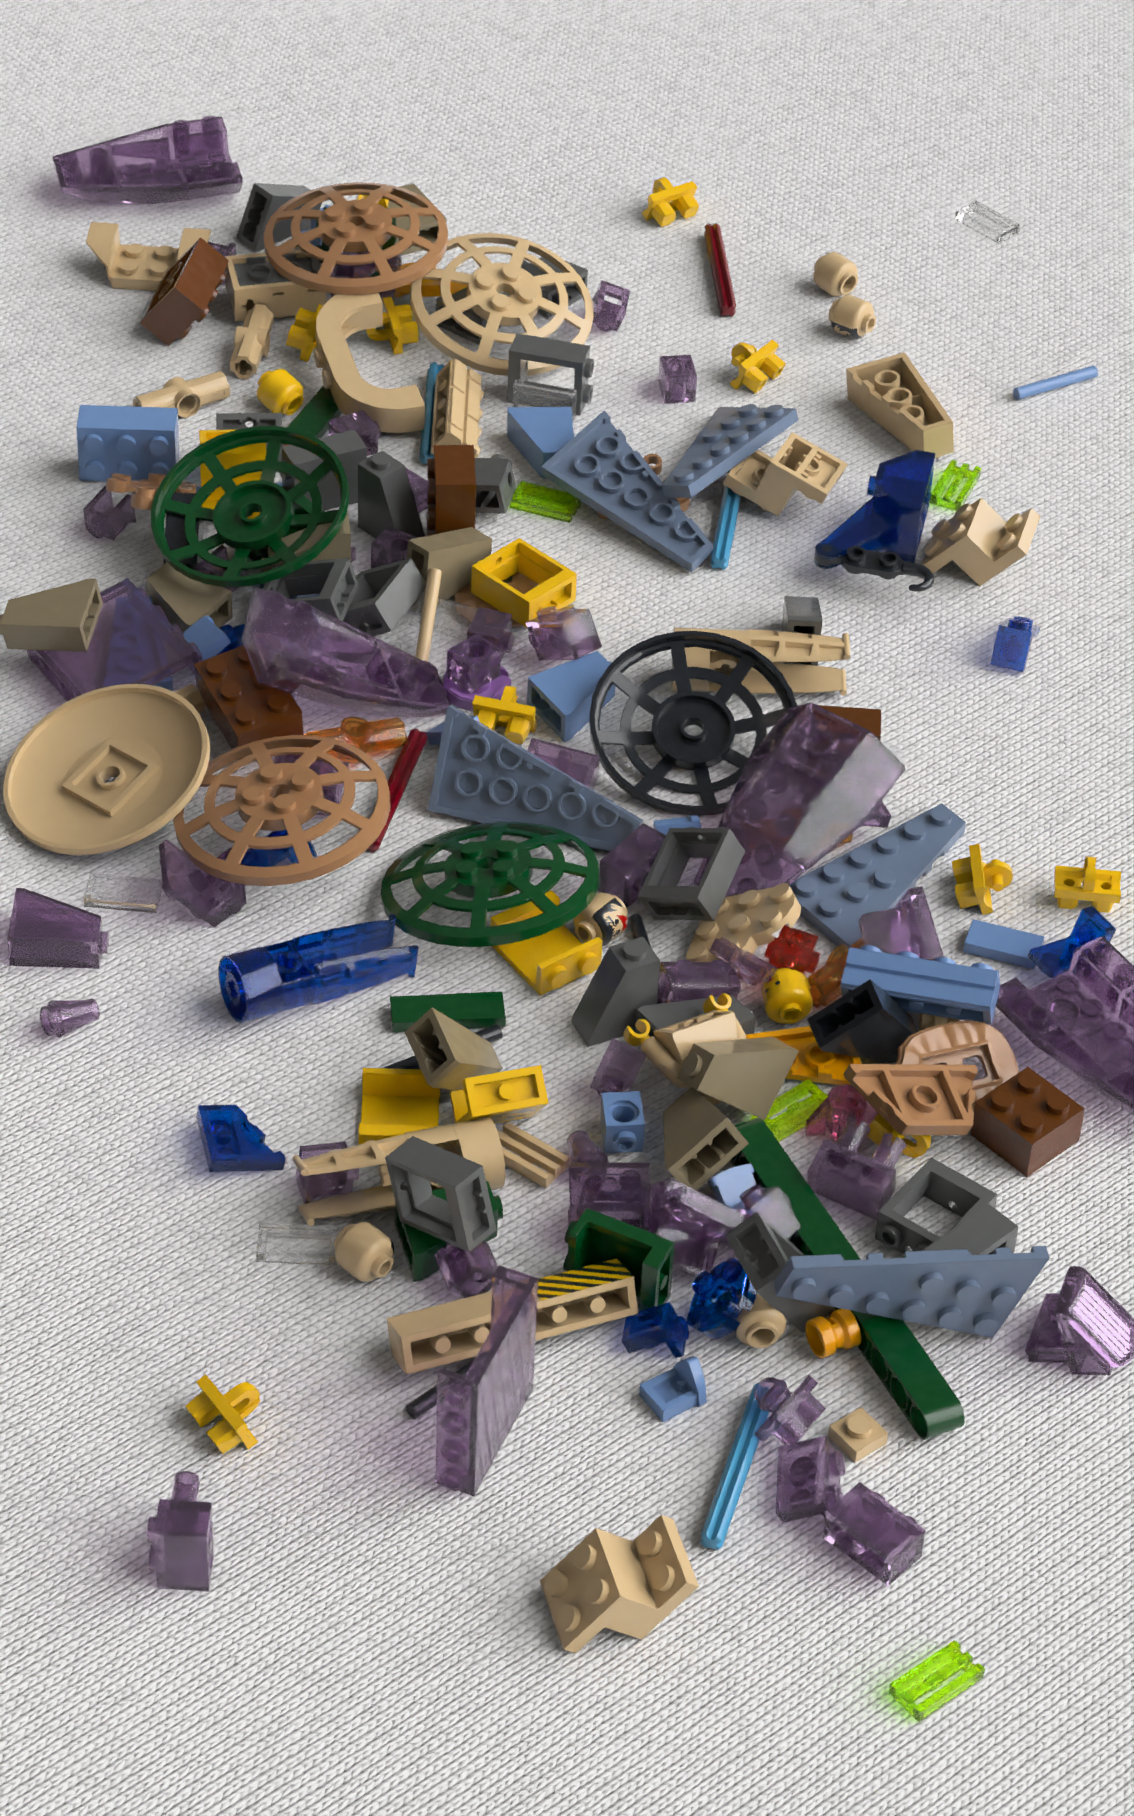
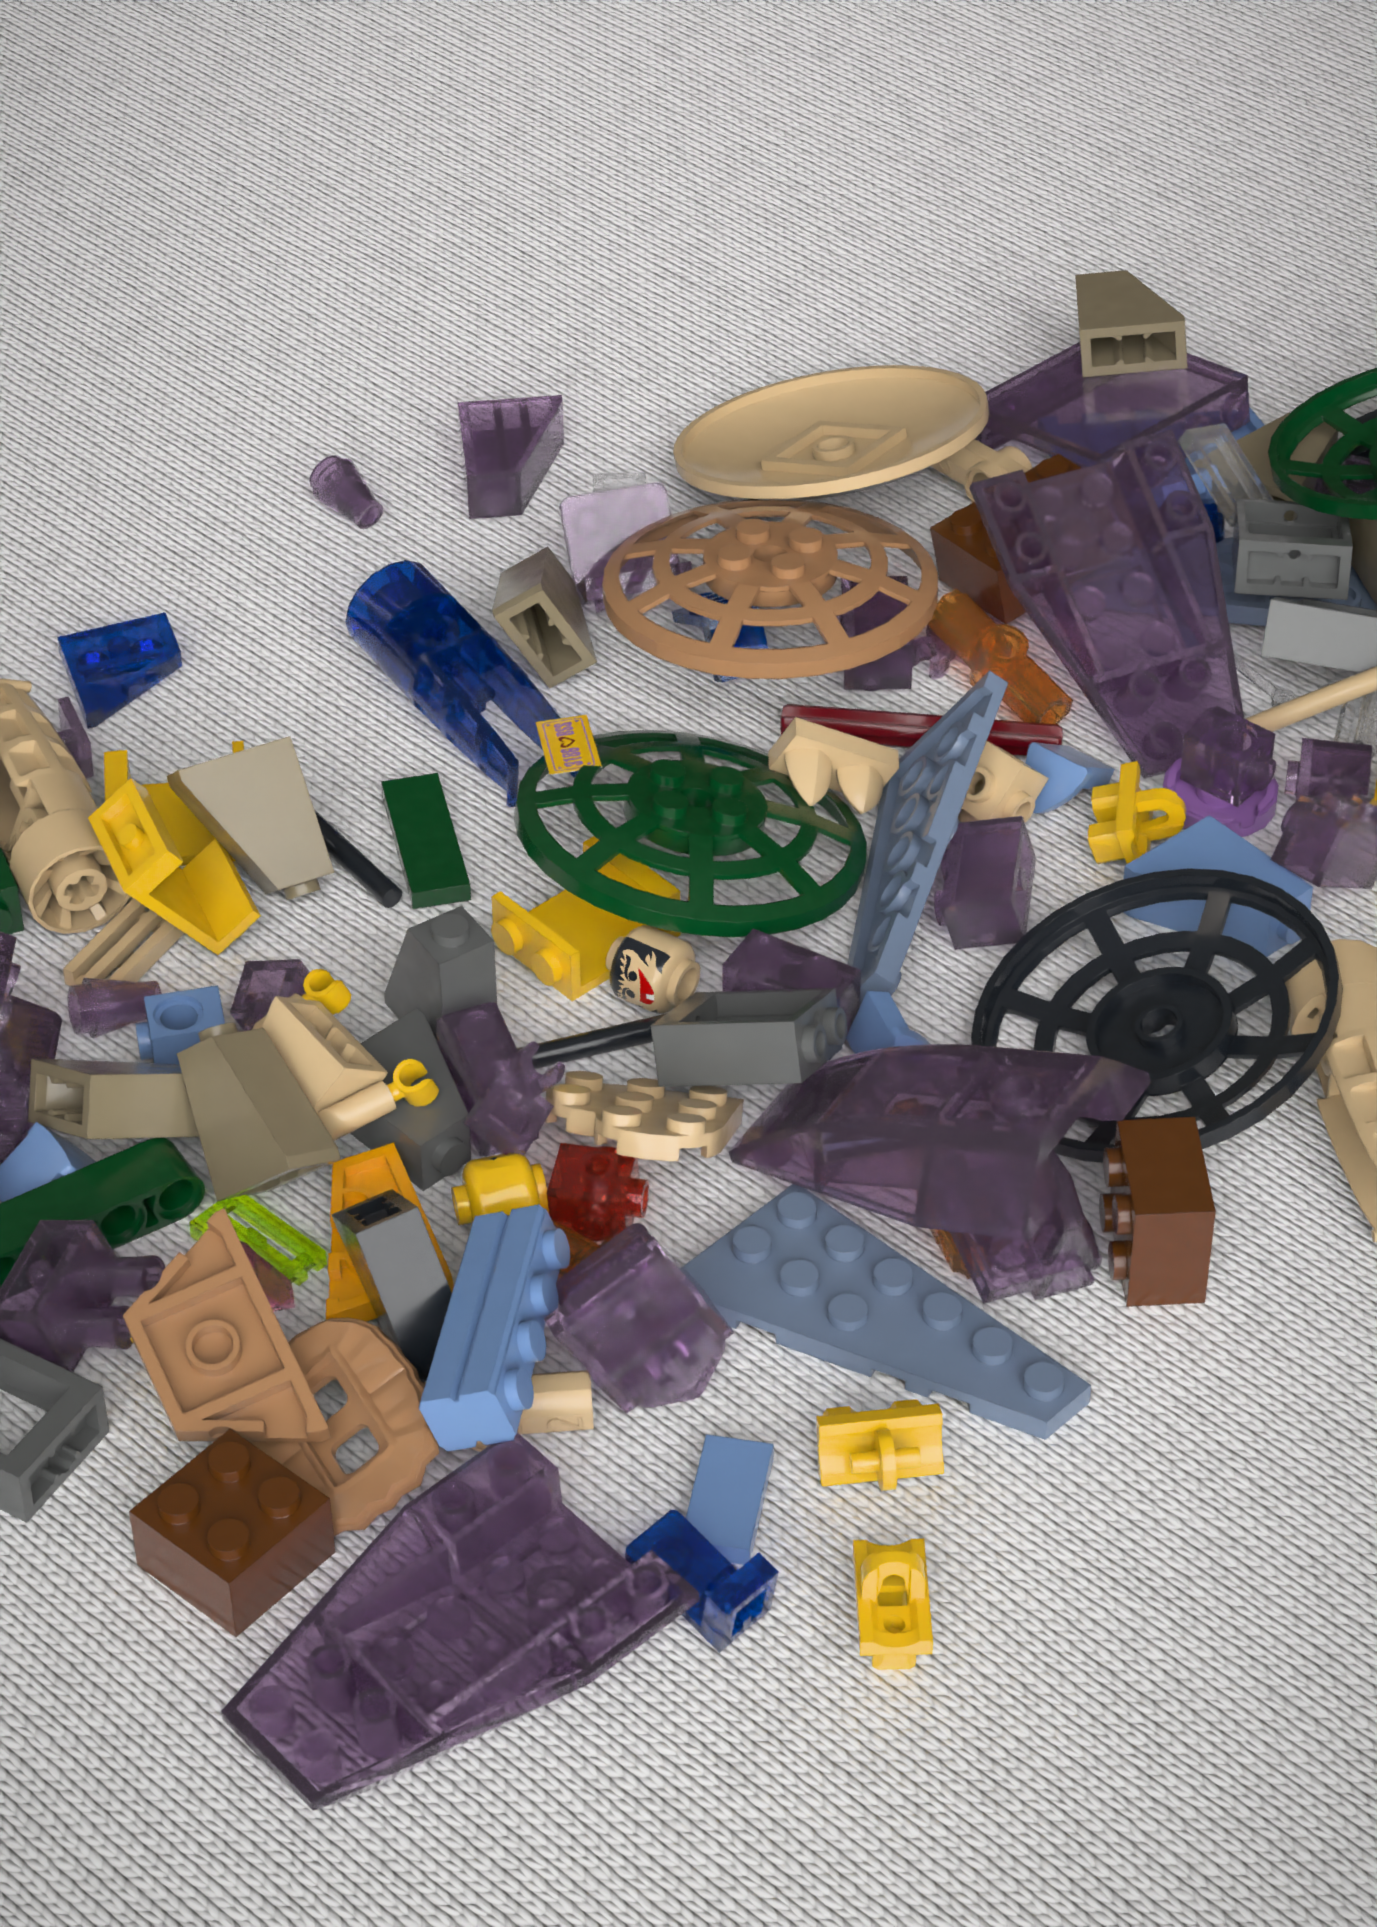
camera: 85 degrees right, 0 degrees up
(214, 608) = (1222, 467): none -> clear tile
(251, 921) = (544, 617): none -> dark tan slope
(416, 914) = (568, 744): none -> yellow sticker
(450, 818) = (835, 760): none -> tan tile

